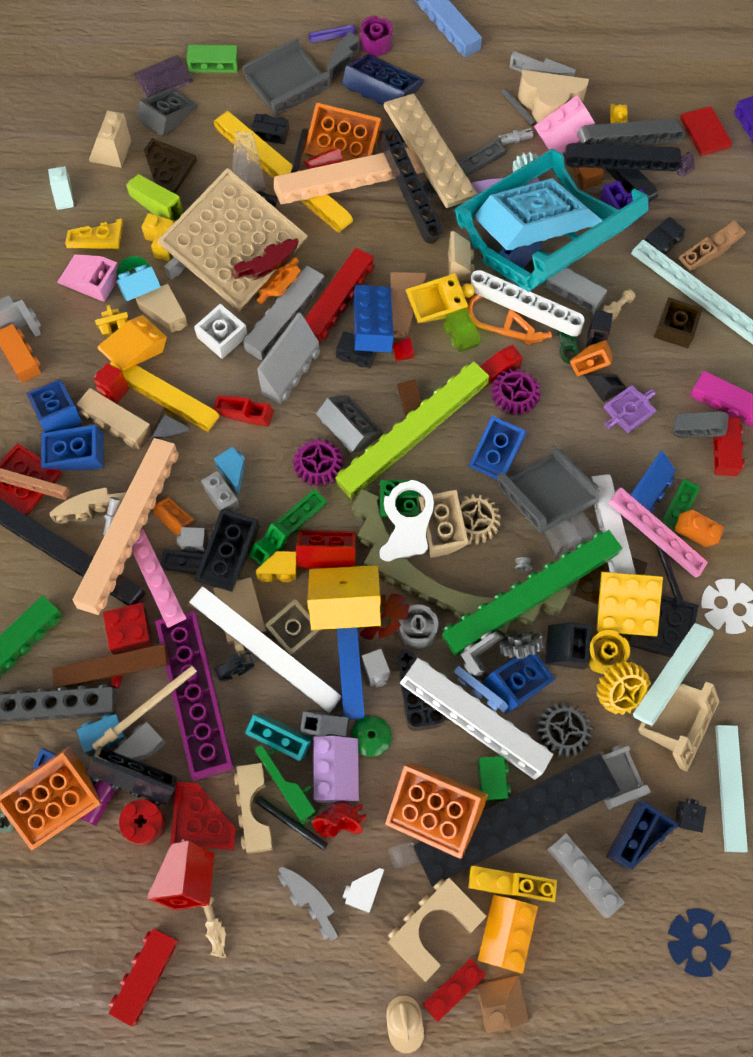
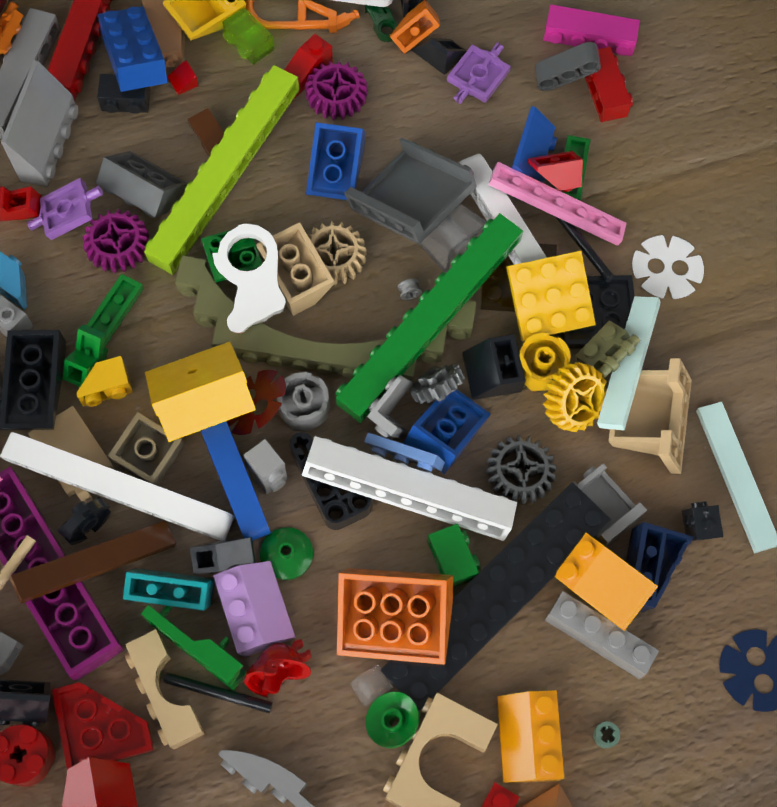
camera: 20 degrees left, 0 degrees up
(232, 699) = (92, 561): none -> reddish brown tile
(288, 427) = (65, 209): none -> medium lavender plate
(325, 549) = (157, 343): red slope -> none
(363, 891) = (335, 745): white slope -> none
(406, 878) = (383, 713): none -> green dish
(512, 884) = (517, 675): yellow slope -> none
(572, 953) = (615, 735): none -> sand green bush
(600, 836) = (605, 581): none -> light orange slope
(657, 654) = (608, 348): none -> olive plate
(667, 506) = (560, 169): none -> slope
(699, 528) = (605, 186): orange brick -> none

